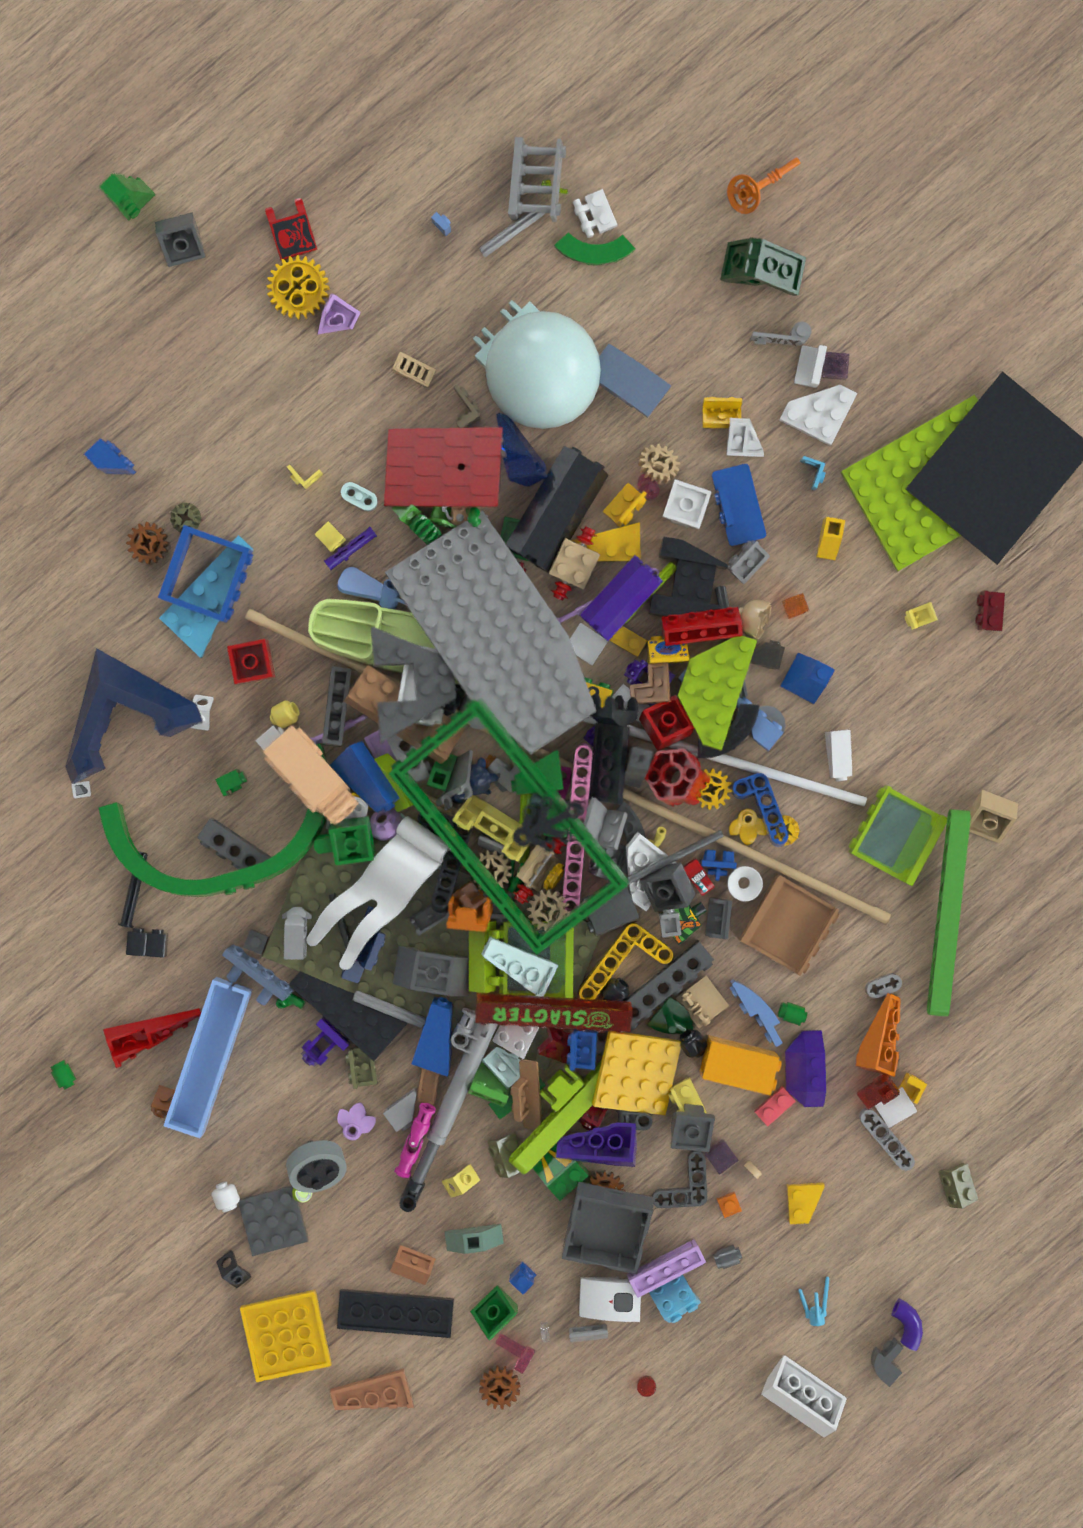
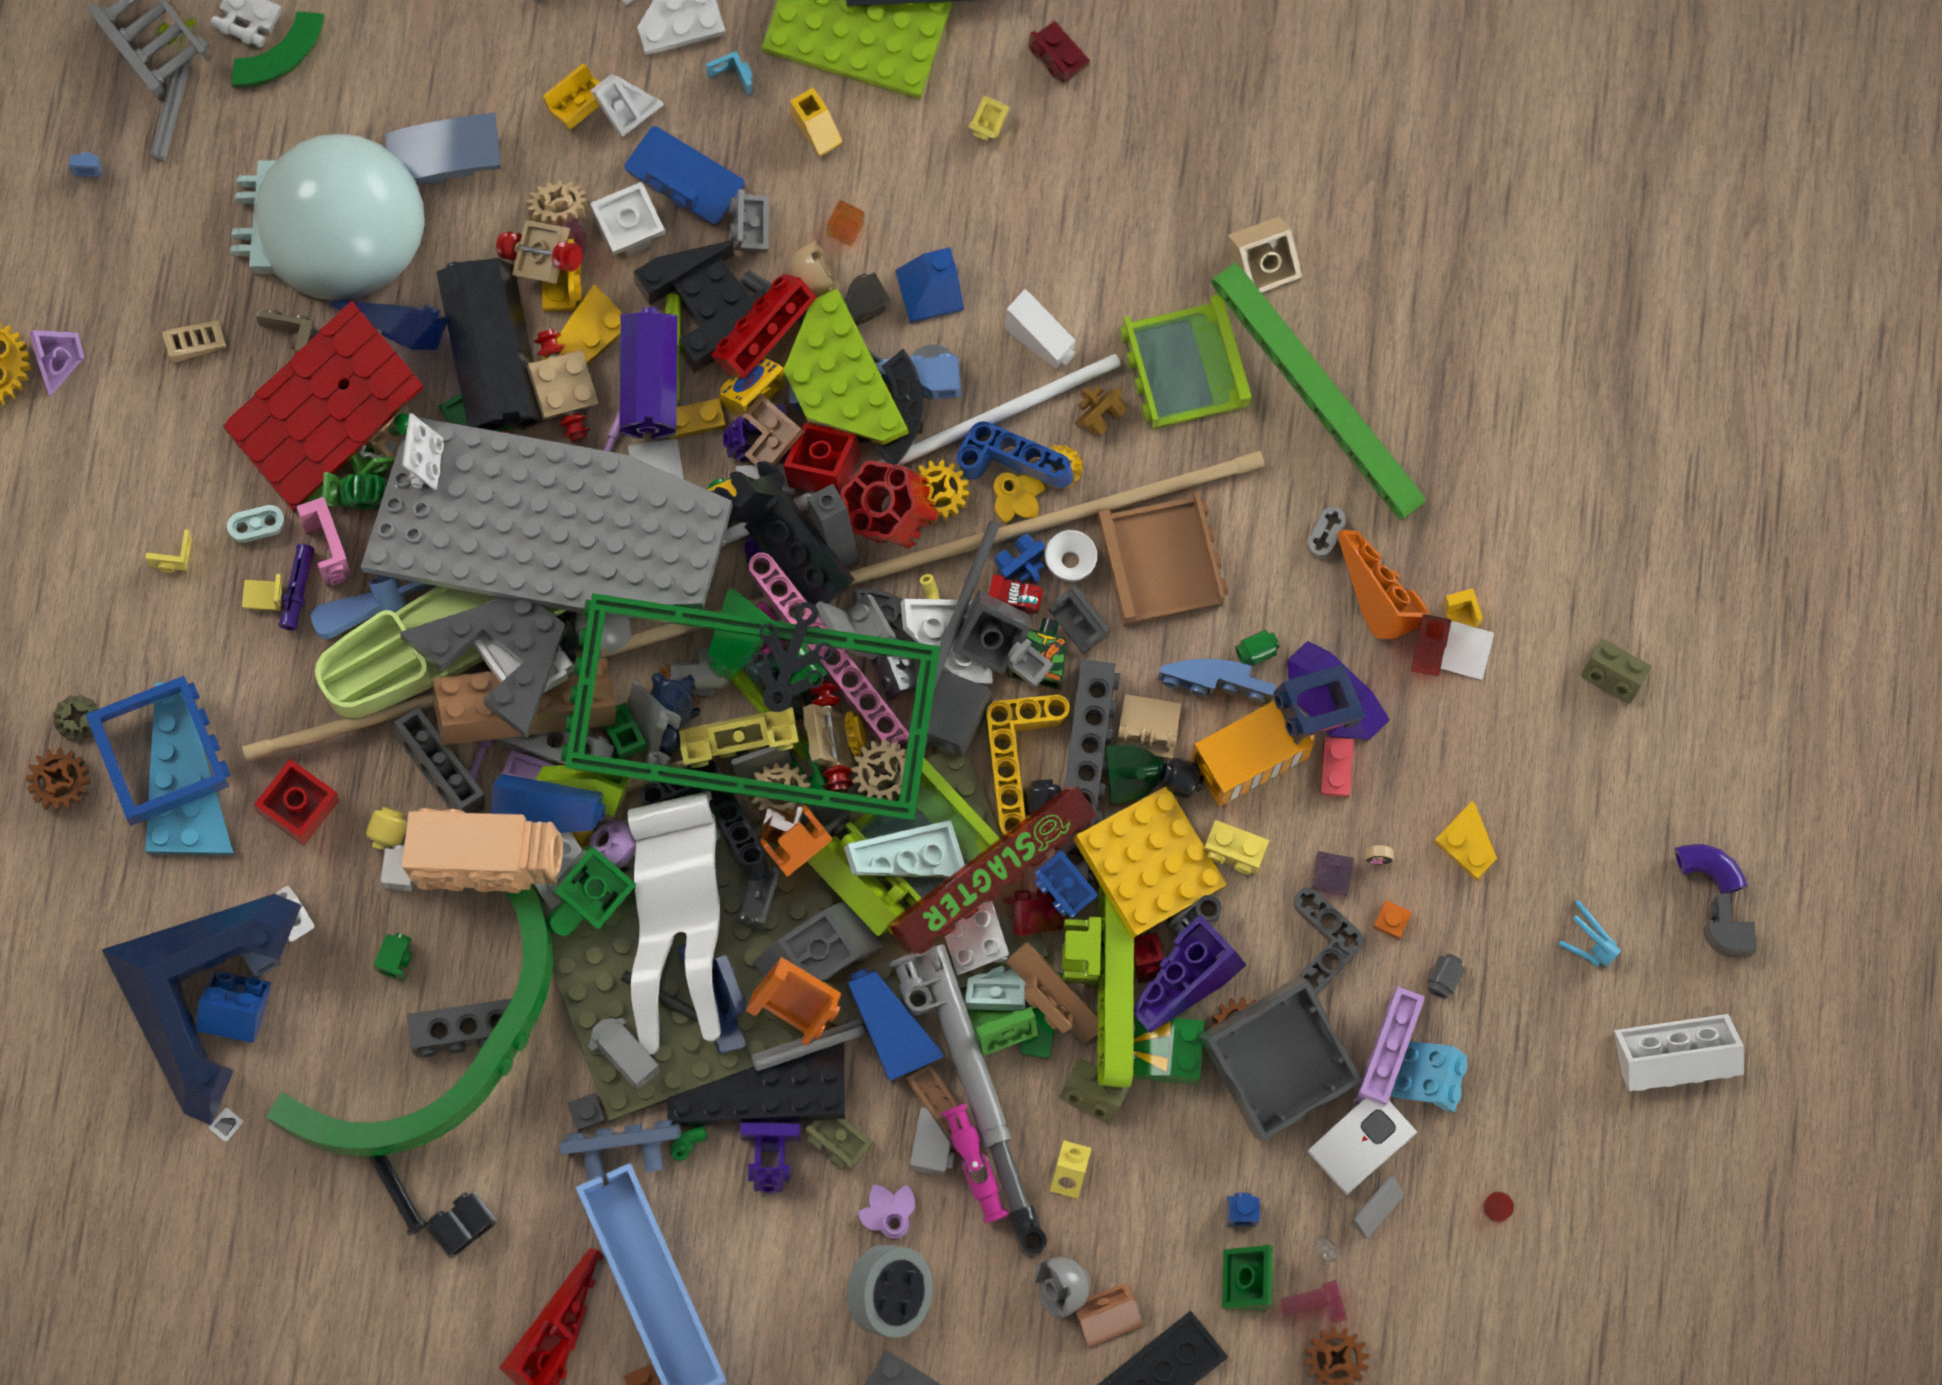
camera: 55 degrees left, 15 degrees down
(132, 736) = (233, 1006): none -> blue slope
(301, 1196) = (902, 1347): lime tile -> none
(393, 525) = (315, 516): none -> bright pink panel
(399, 987) = (796, 999): none -> orange panel
(402, 1236) = (1063, 1286): none -> light grey cylinder
(466, 542) = (422, 453): none -> white hinge
(474, 1239) = (1145, 1217): sand green slope -> none
(625, 483) = (540, 251): none -> plate
(692, 1129) = (1268, 866): dark grey panel -> none
(807, 1086) = (1299, 725): none -> dark blue panel
(831, 817) = (1109, 401): none -> pearl gold hips
(886, 1139) = (1491, 687): light grey beam -> none

